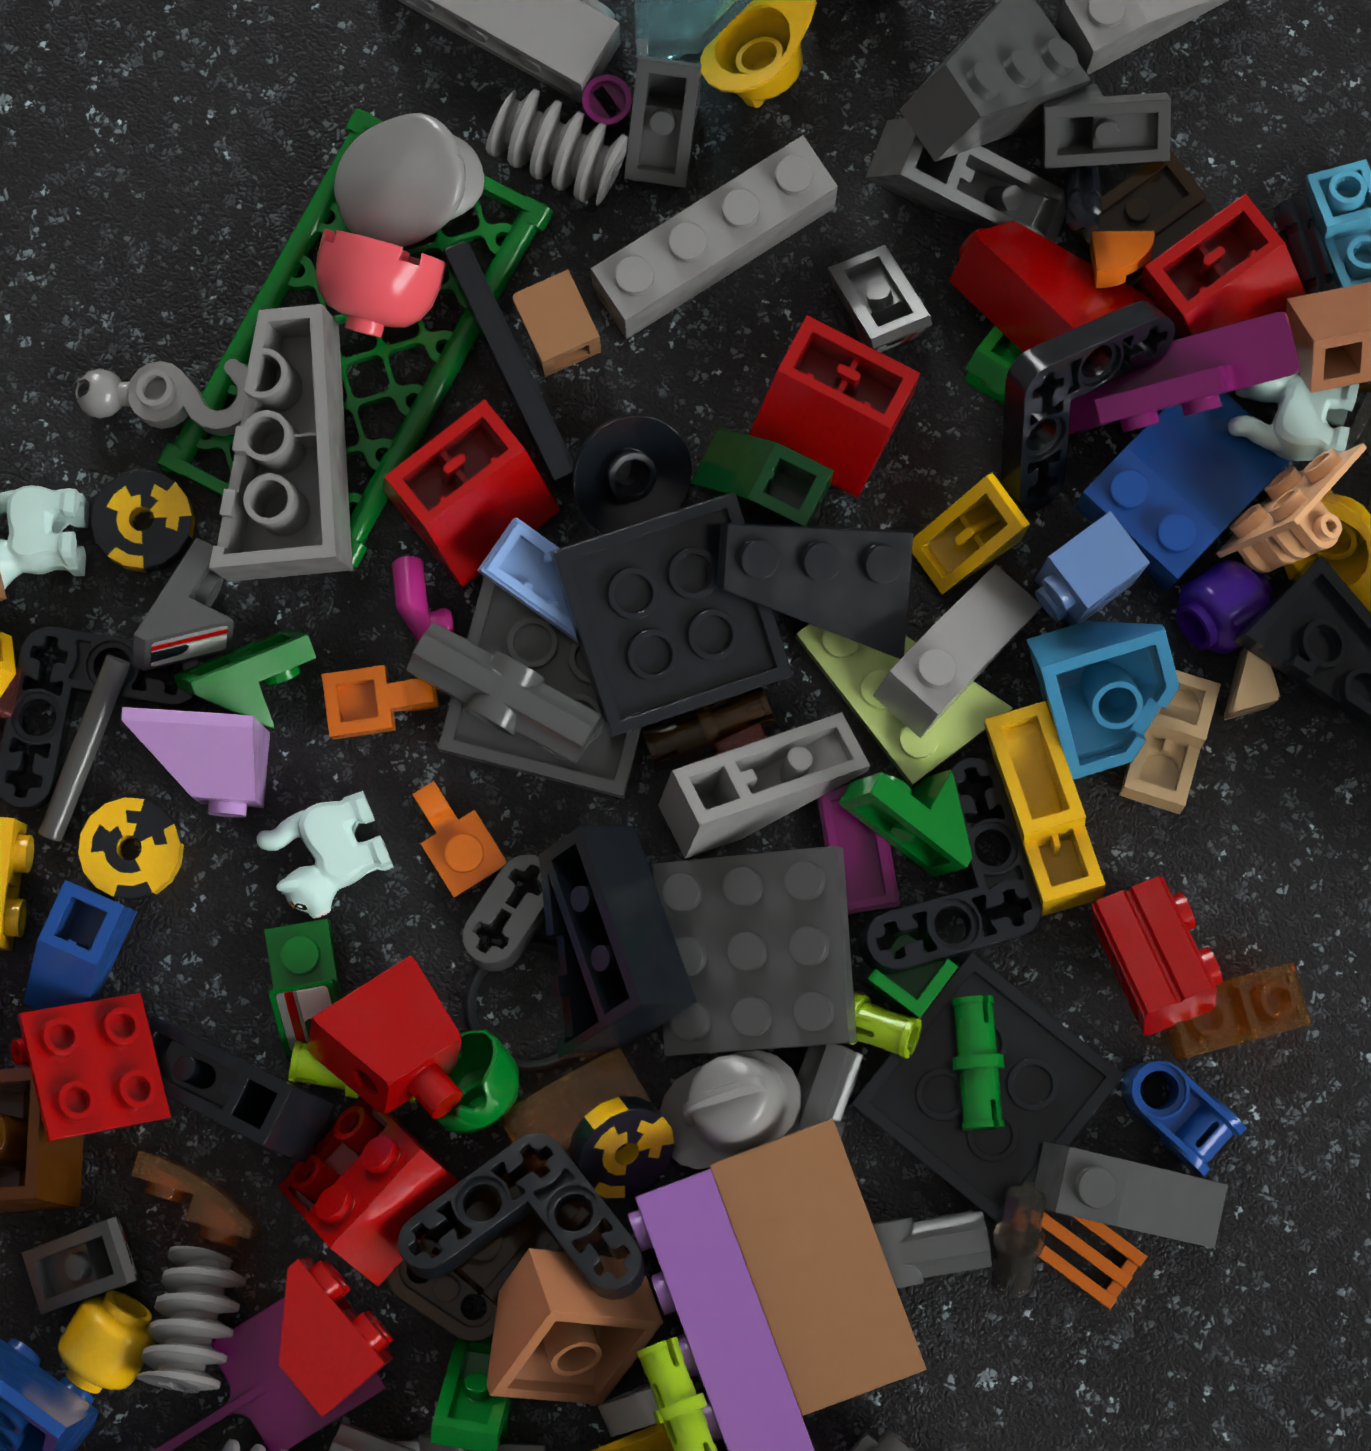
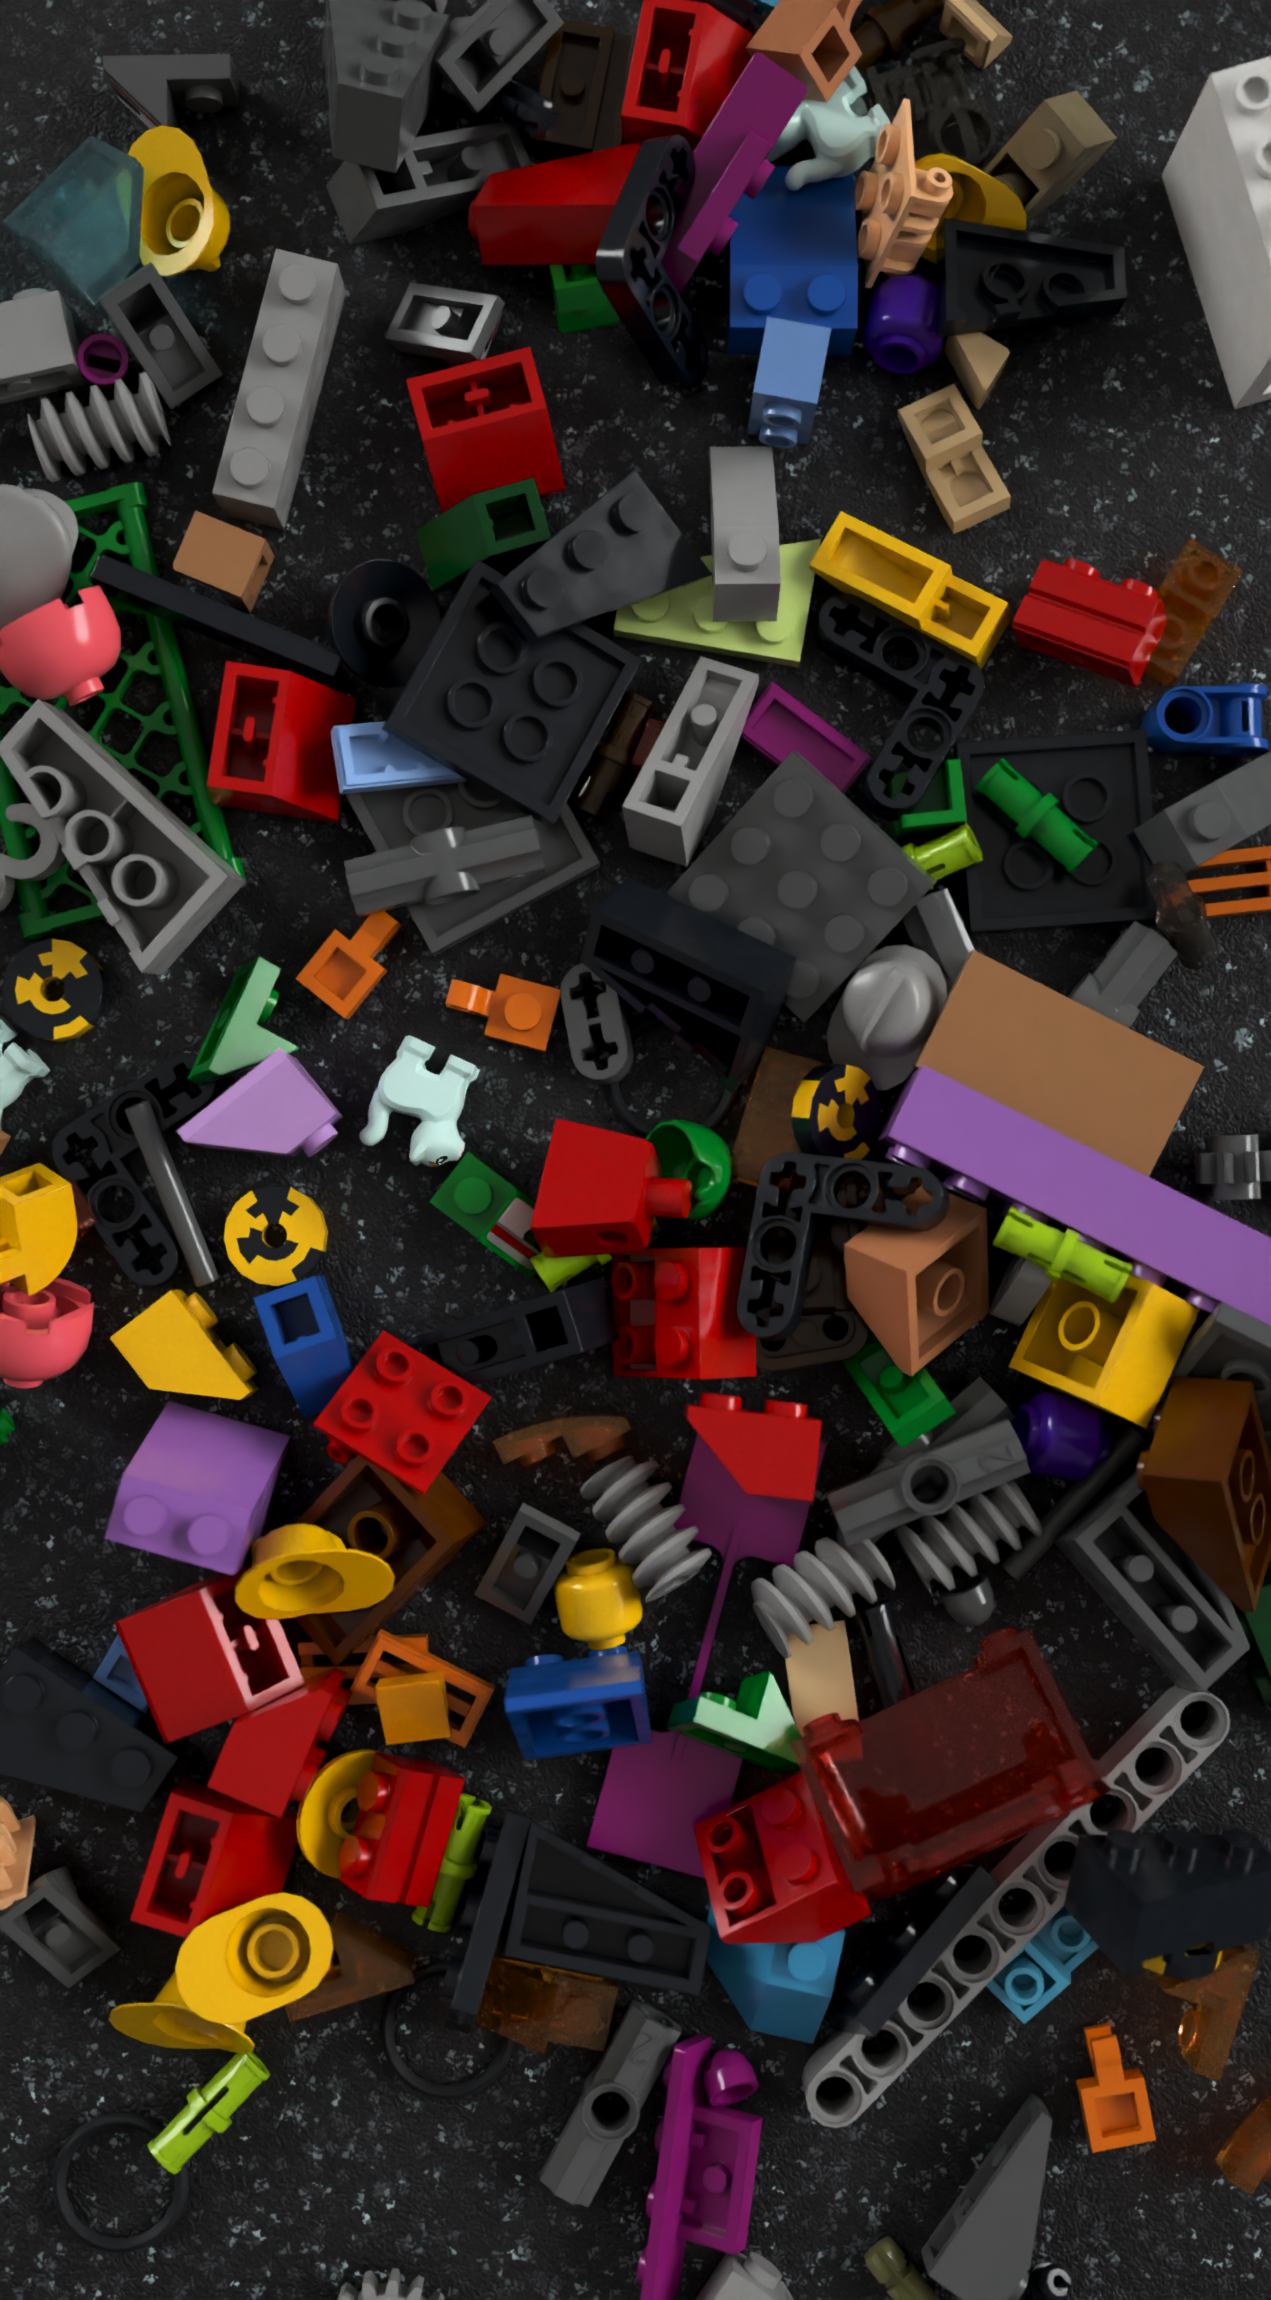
camera: 45 degrees left, 5 degrees up
(181, 619) = (156, 1032): dark grey slope -> none
(412, 597) = (309, 863): dark pink arm -> none
(919, 823) = (827, 684): green slope -> none
(969, 534) = (674, 436): yellow slope -> none
(1103, 688) = (874, 460): dark azure slope -> none
(1119, 254) = (591, 128): orange tile -> none

